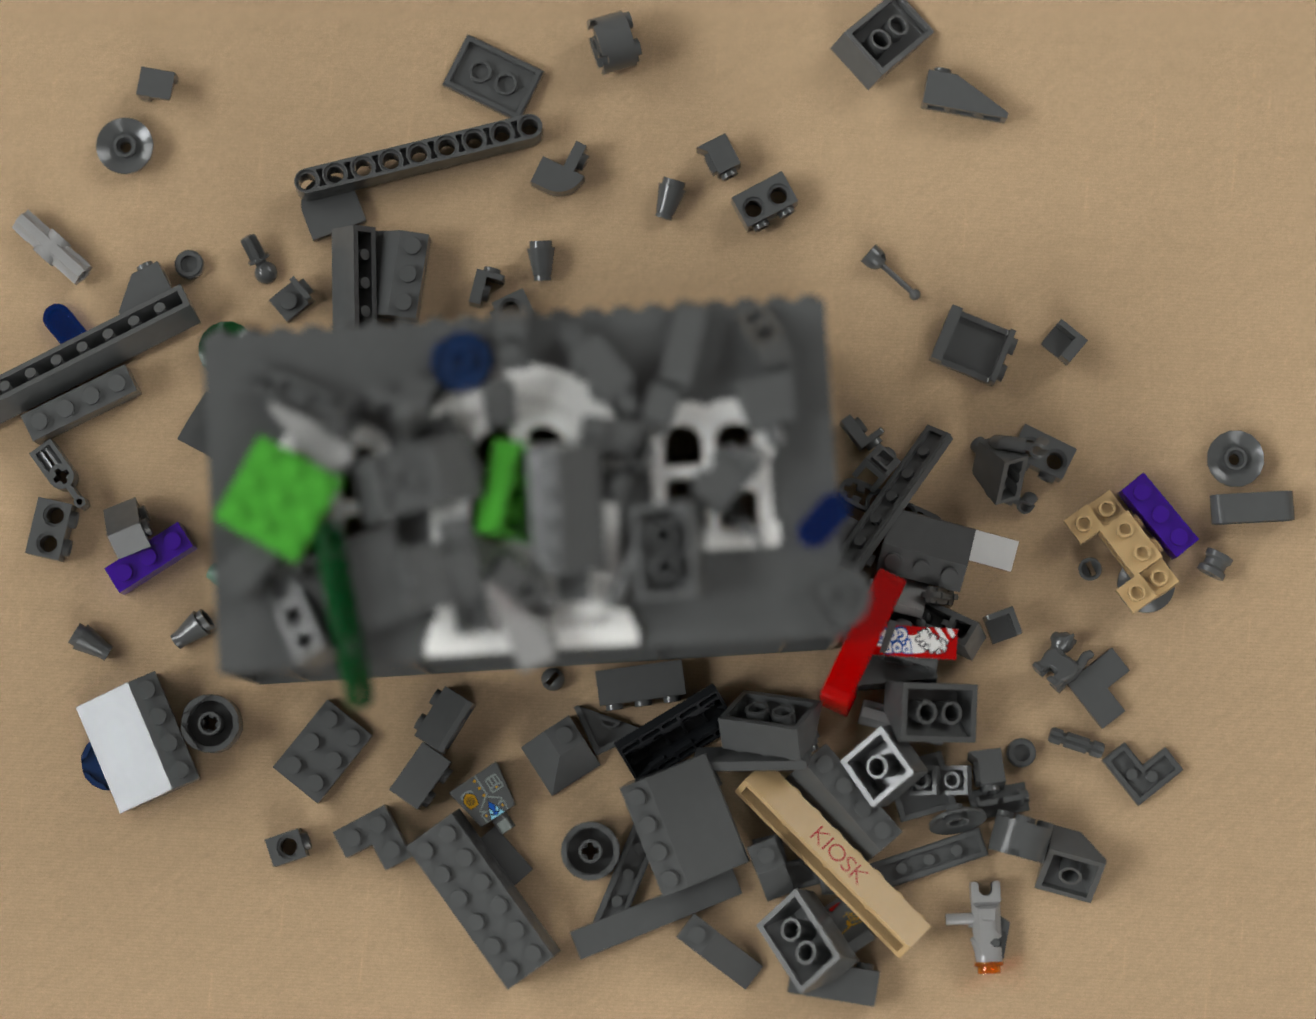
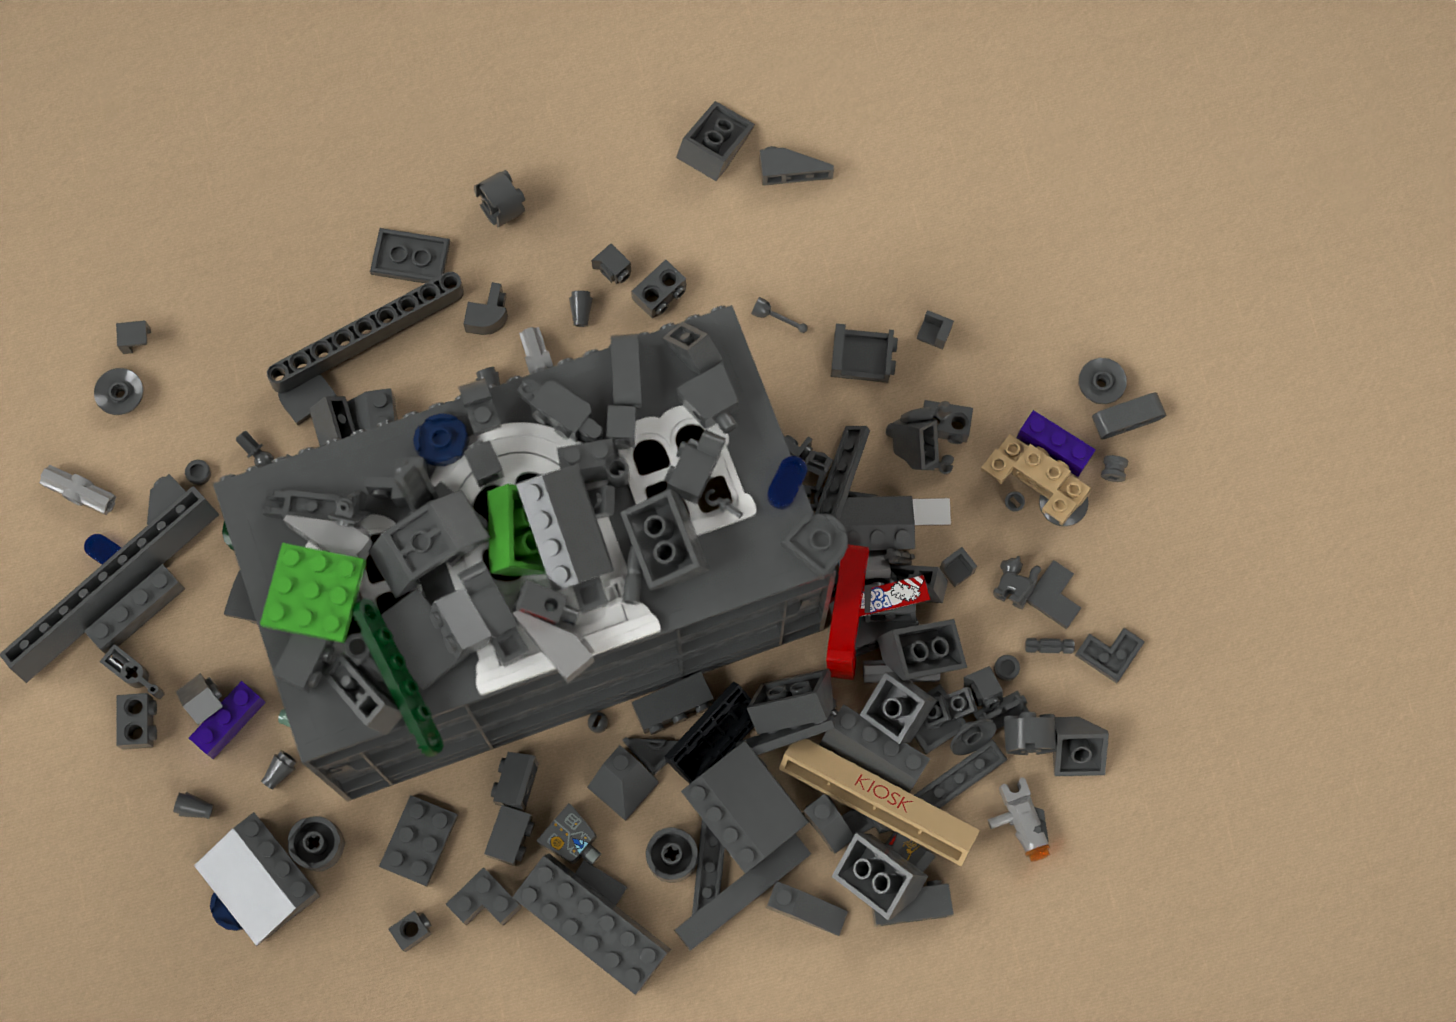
camera: 20 degrees left, 10 degrees down
(603, 251) = (535, 349): none -> light grey piece

